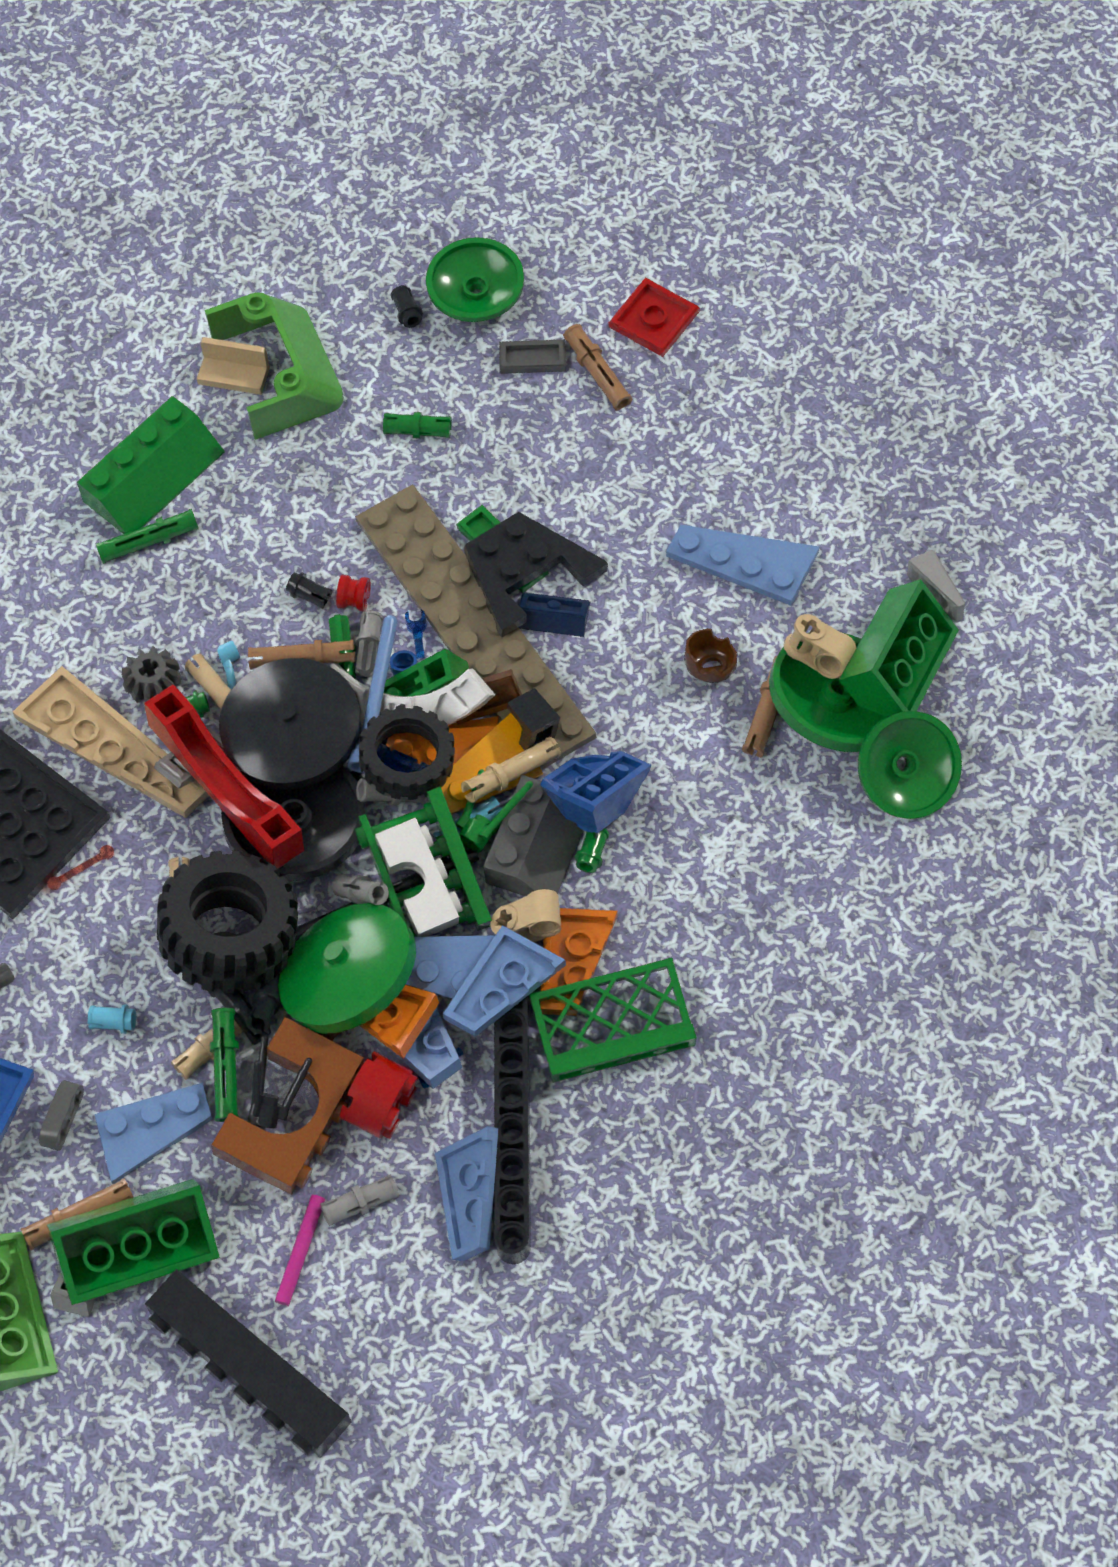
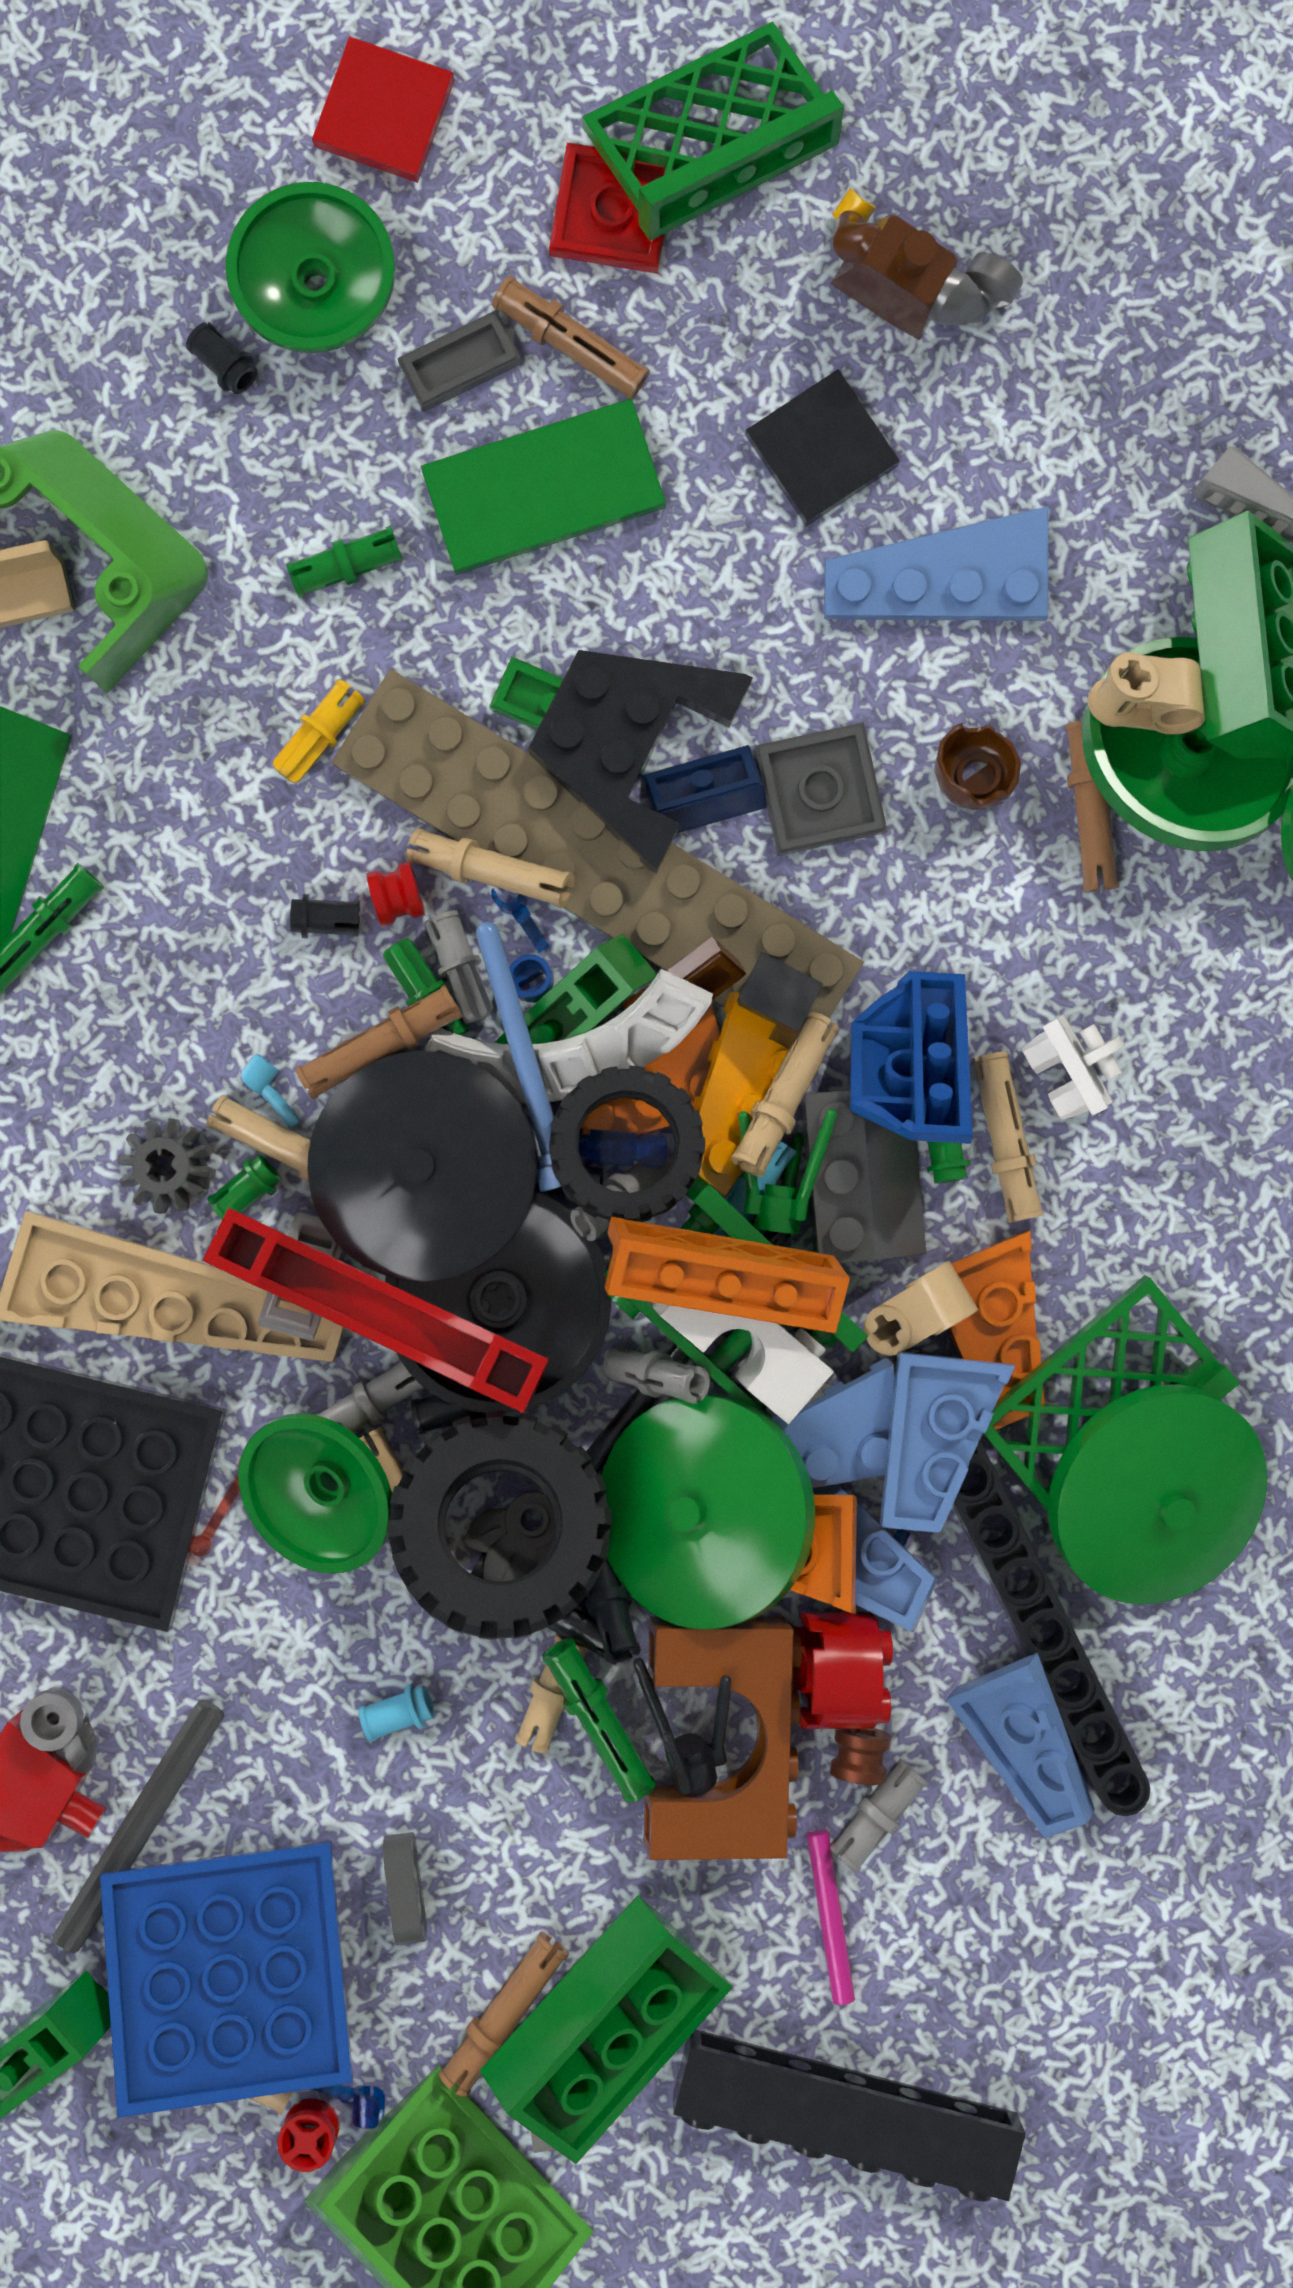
camera: 30 degrees left, 25 degrees up
(122, 869) = (300, 1506): none -> green dish
(149, 1126) = (533, 1842): medium blue wing -> none
(191, 844) = (373, 1398): none -> light grey pin
(356, 499) = (317, 732): none -> yellow axle
(367, 1157) = (860, 1756): none -> copper wheel
(401, 591) = (469, 862): none -> tan pin
(421, 830) = (725, 1275): none -> orange fence
(544, 431) = (543, 486): none -> green tile
(556, 228) = (383, 109): none -> red tile
(617, 1079) = (1157, 1494): none -> green dish
(618, 638) = (820, 789): none -> dark grey tile
(628, 870) = (1007, 1137): none -> tan pin
(696, 834) = (1086, 1088): none -> white hips
(708, 471) = (822, 447): none -> black tile
(727, 316) = (745, 160): none -> green fence
(796, 407) = (912, 277): none -> reddish brown torso

